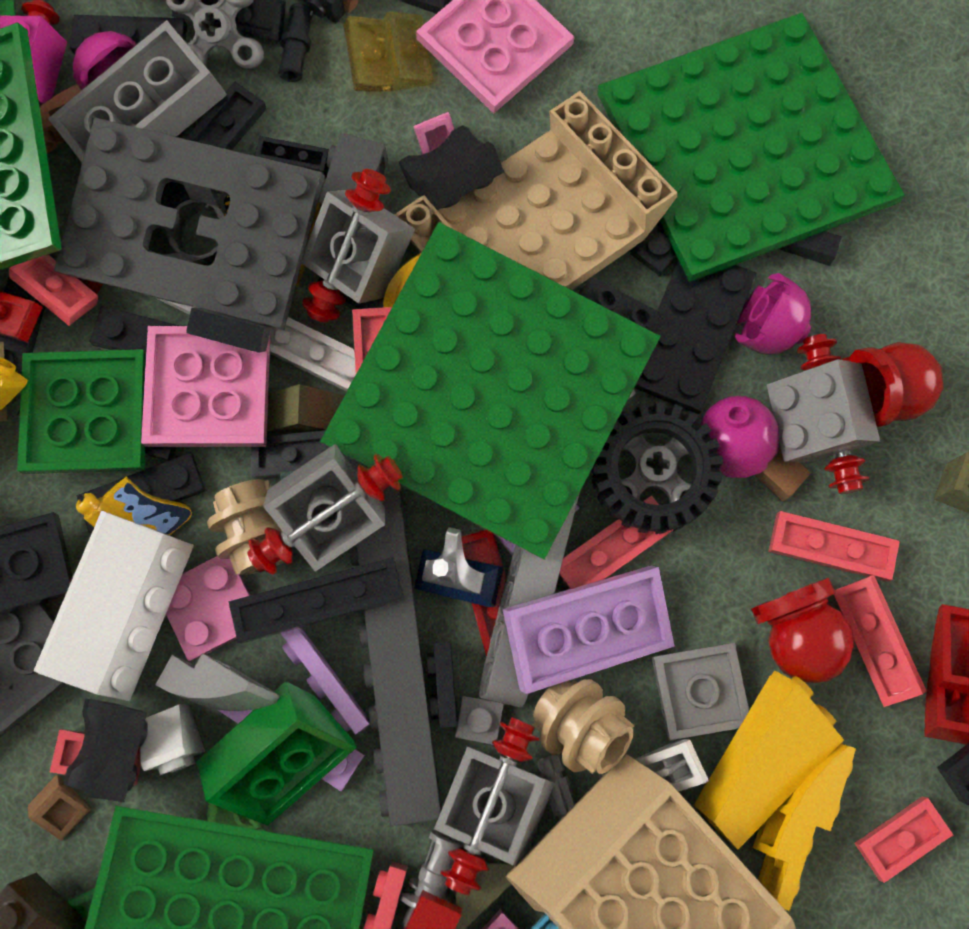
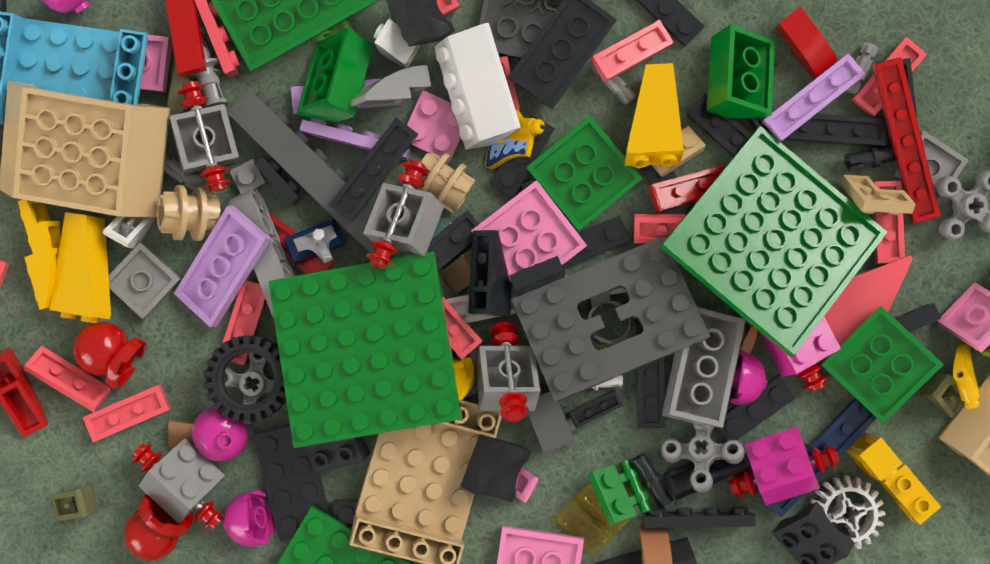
camera: 140 degrees right, 10 degrees up
(283, 373) = (489, 278): none -> black slope
(347, 51) = (613, 495): none -> green plate

